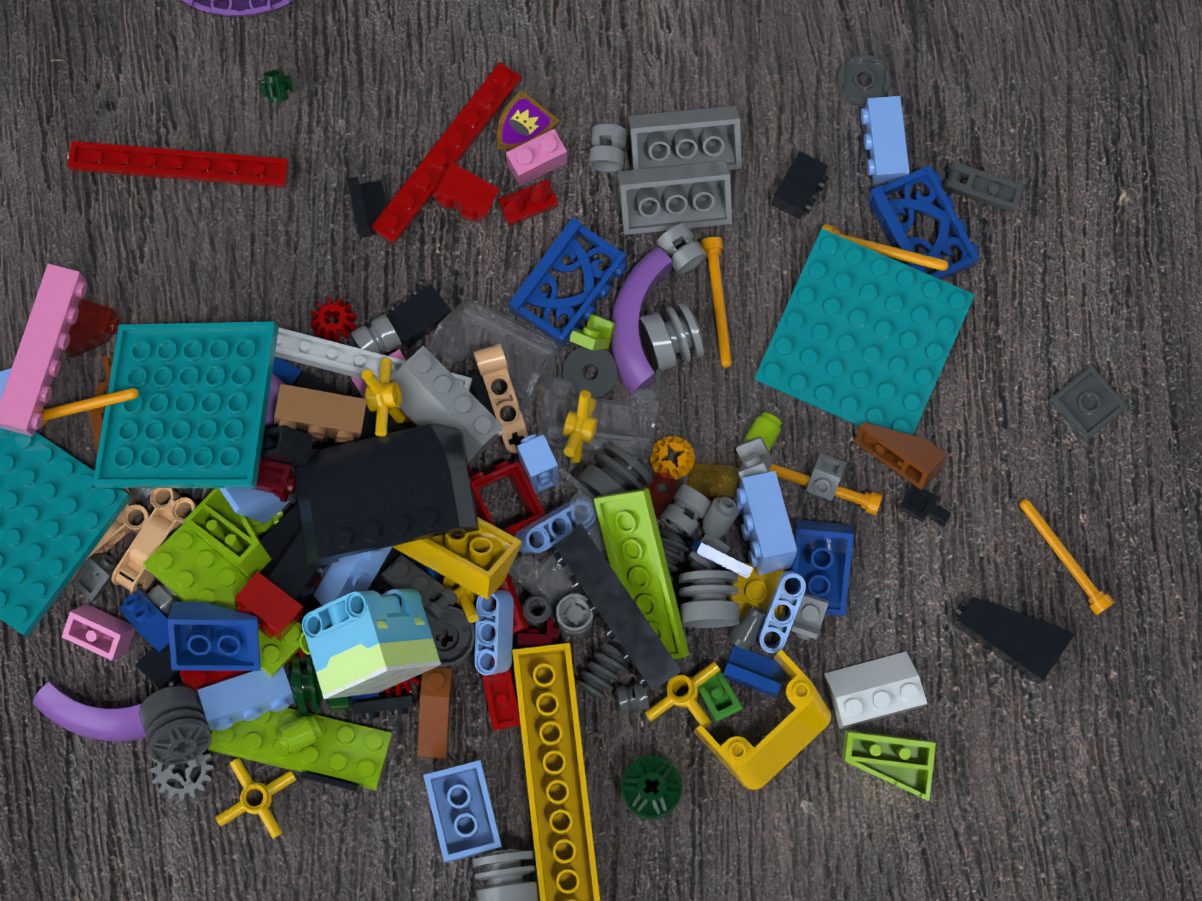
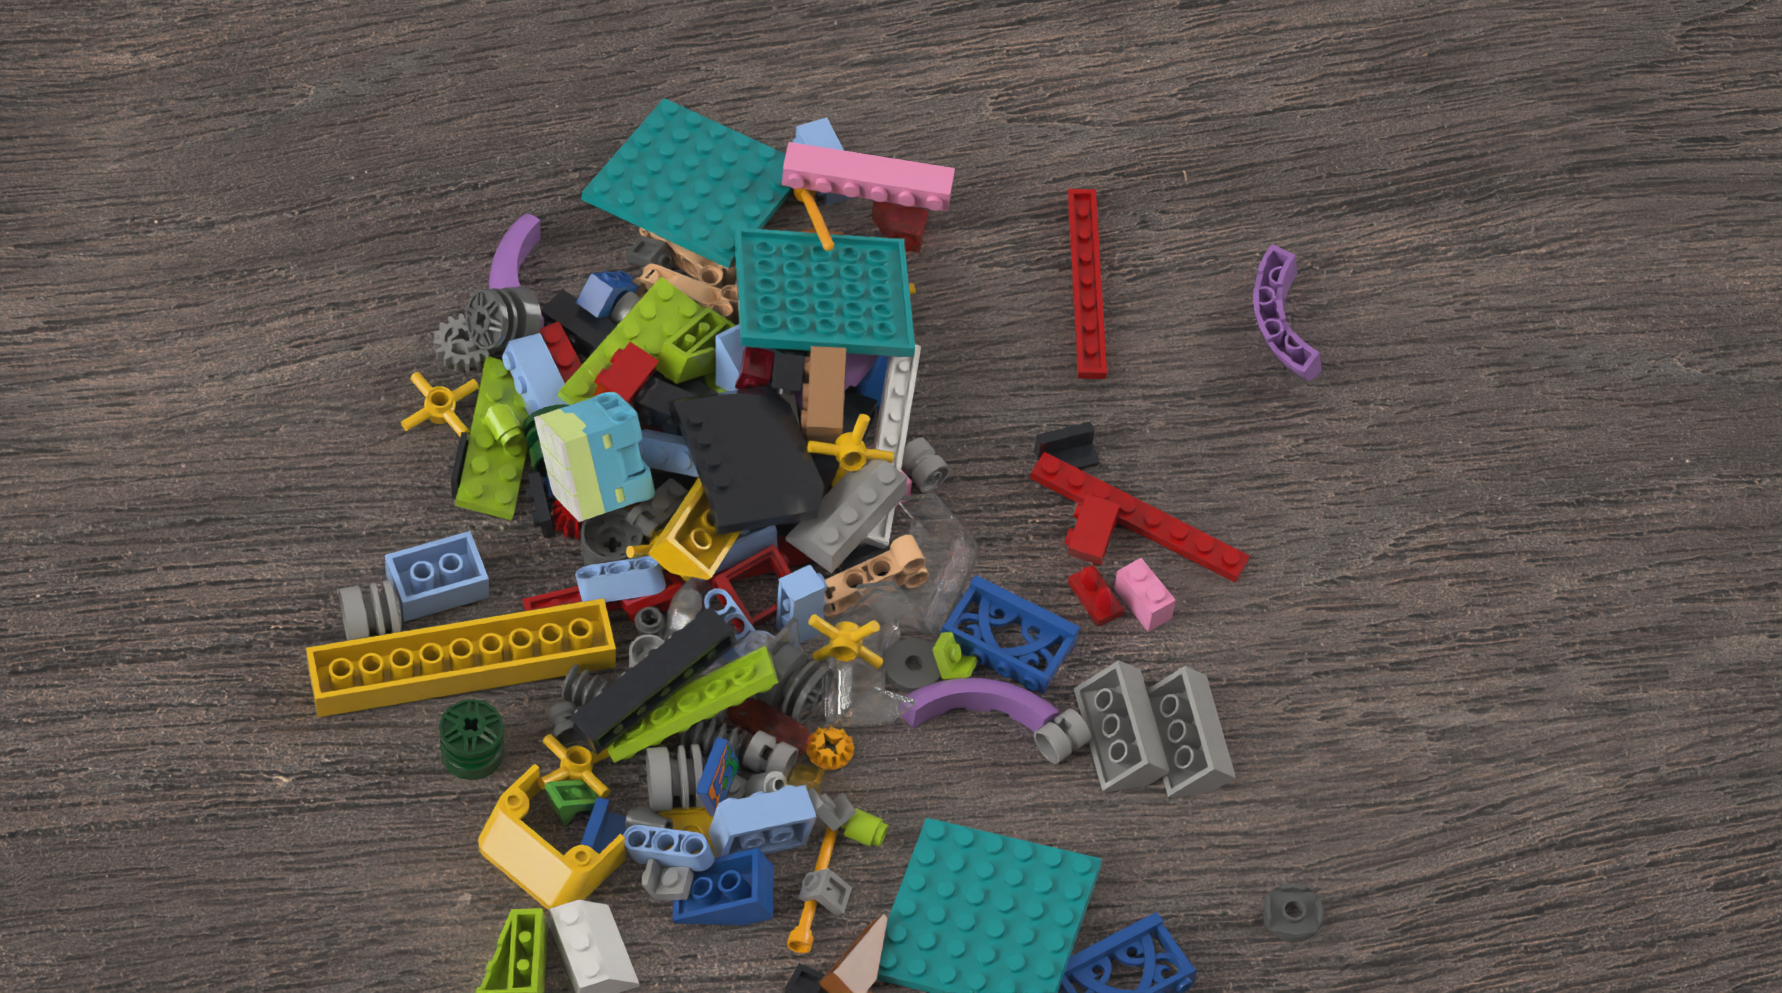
camera: 80 degrees right, 20 degrees down
(98, 631) = (593, 253): bright pink brick -> none
(212, 638) = (589, 330): blue slope -> none
(276, 86) = (1185, 355): dark green gear -> none
(335, 311) = (938, 427): red gear -> none
(418, 315) = (962, 501): black brick -> none
(435, 712) = (539, 549): dark orange slope -> none
(523, 121) = (1184, 576): shield -> none
(534, 638) = (621, 632): dark red bracket -> none
(608, 148) = (1164, 659): light grey wheel -> none
(671, 337) = (958, 726): light grey wheel -> none
(713, 248) = (1067, 770): light orange piece -> none
(800, 185) = (1154, 849): black brick -> none
(885, 139) = (1223, 932): light blue brick -> none
(893, 252) = (1102, 886): light orange piece -> none

